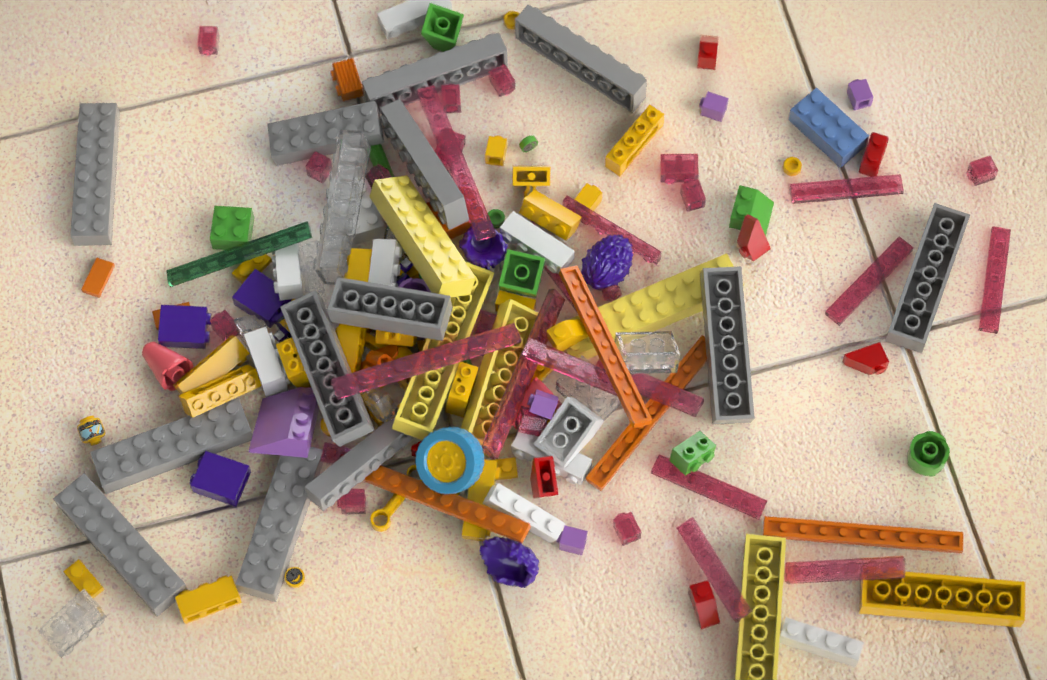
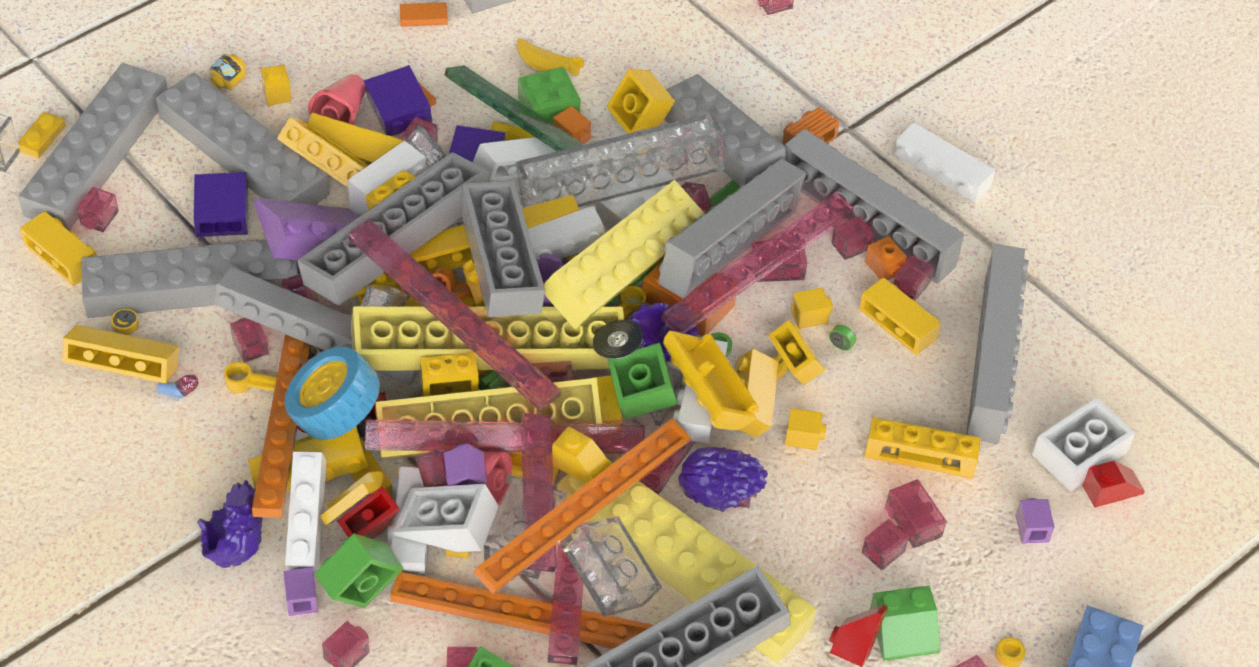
camera: 60 degrees right, 15 degrees down
(123, 402) = (276, 85): none -> yellow brick
(184, 562) = (97, 209): none -> clear pink brick
(188, 216) = (544, 60): none -> yellow piece
(266, 223) = (574, 124): none -> orange brick
(275, 172) = (640, 101): none -> yellow brick
(329, 587) = (120, 353): none -> yellow brick
(372, 560) = (179, 388): none -> arm
(441, 27) = (939, 186): bright green slope -> none
(479, 88) = (885, 258): none -> orange brick
(488, 272) = (617, 339): none -> black sticker
(526, 480) = (352, 496): none -> yellow slope
(528, 102) = (900, 316): none -> yellow brick
(546, 232) = (712, 380): none -> yellow container
(584, 496) = (358, 571): none -> bright green brick
(604, 226) = (775, 460): clear pink plate -> none
(611, 293) = (685, 502): clear pink tile -> none
(676, 51) = (1082, 441): none -> white brick

